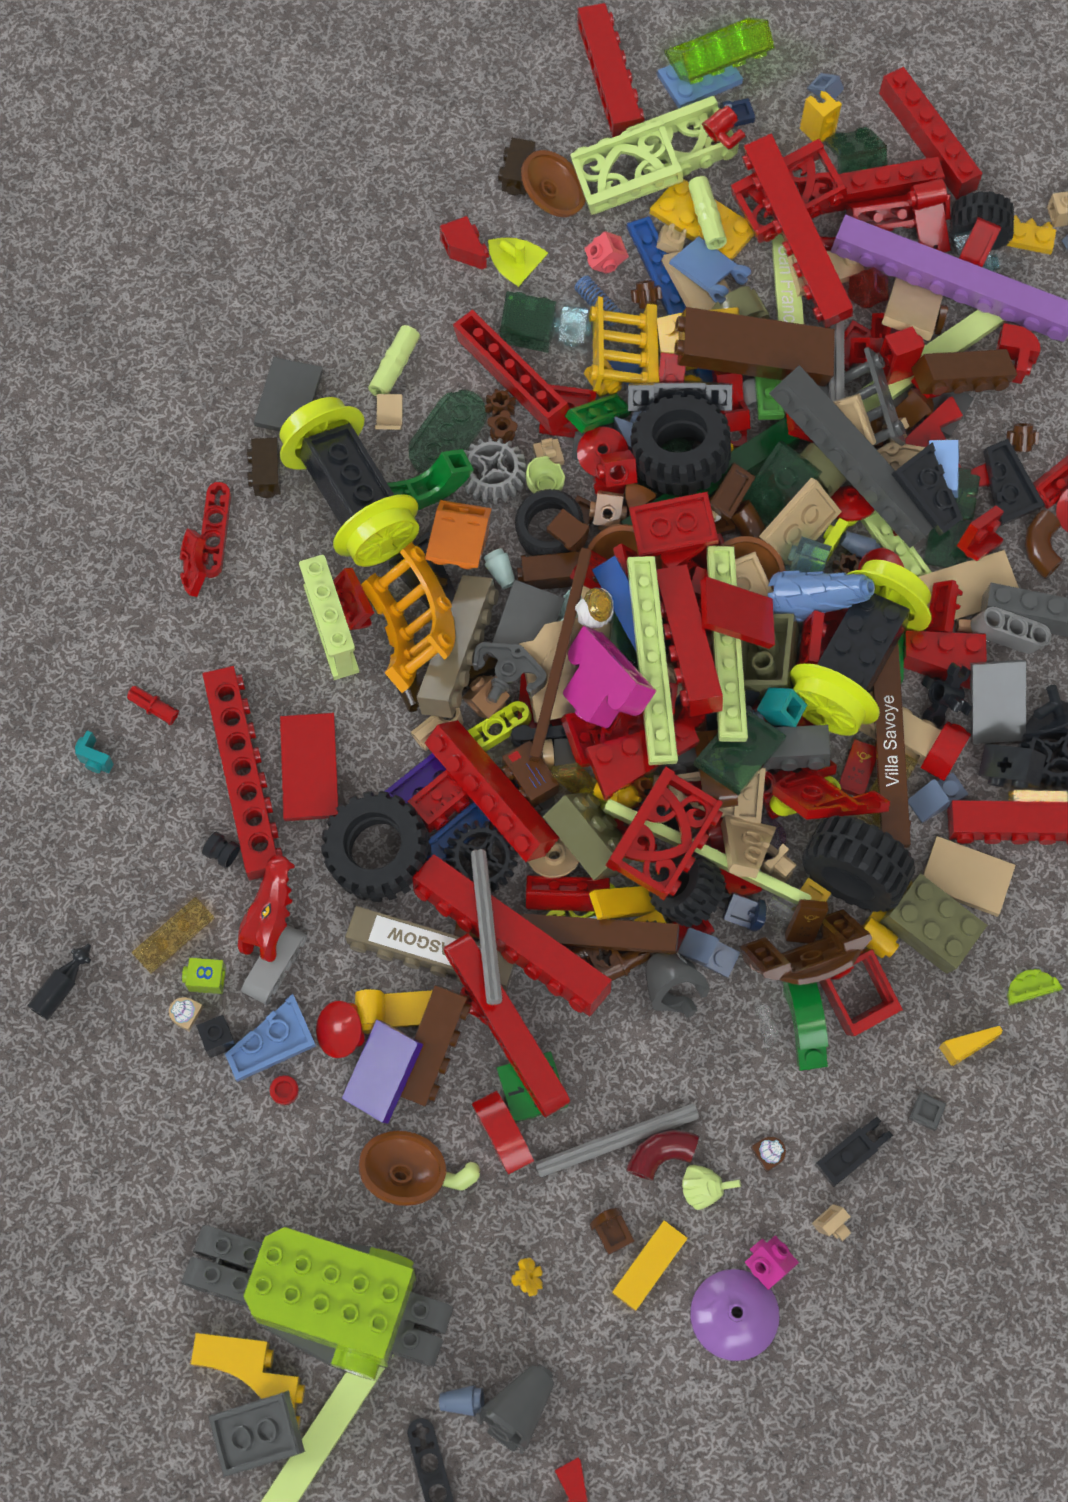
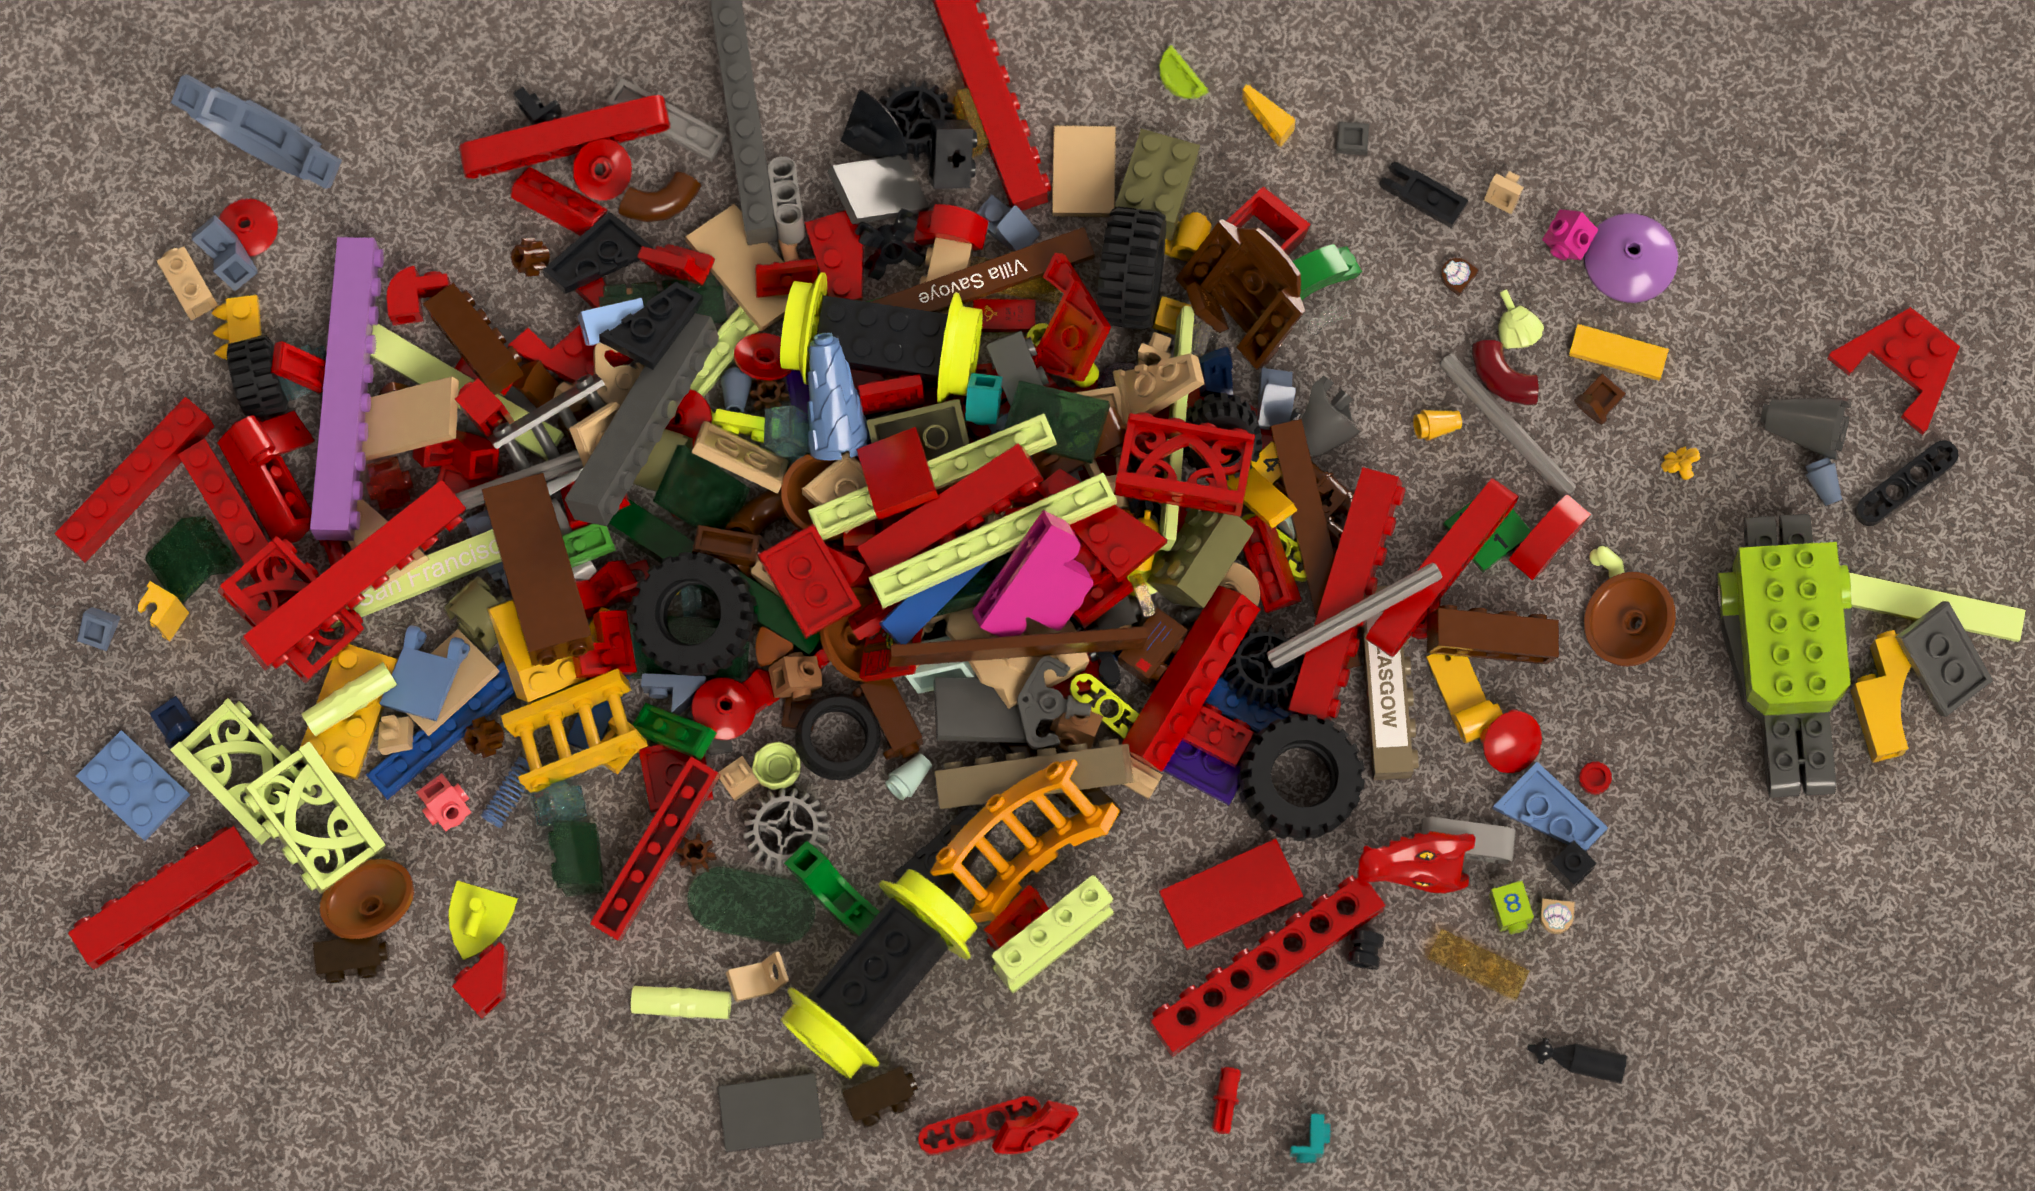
camera: 105 degrees left, 5 degrees up
(382, 1071) = (1541, 675): tile -> none
(458, 534) = (895, 827): orange slope -> none
(502, 427) = (725, 830): reddish brown brick -> none
(569, 531) = (848, 703): reddish brown tile -> none
(595, 608) = (955, 617): clear yellow hair -> none
(624, 476) = (745, 678): red brick -> none
(640, 1079) = (1435, 423): none -> yellow cone
(643, 394) = (626, 653): slope -> none
(720, 124) = (217, 725): red piece -> none
(721, 49) = (95, 765): clear neon green slope -> none

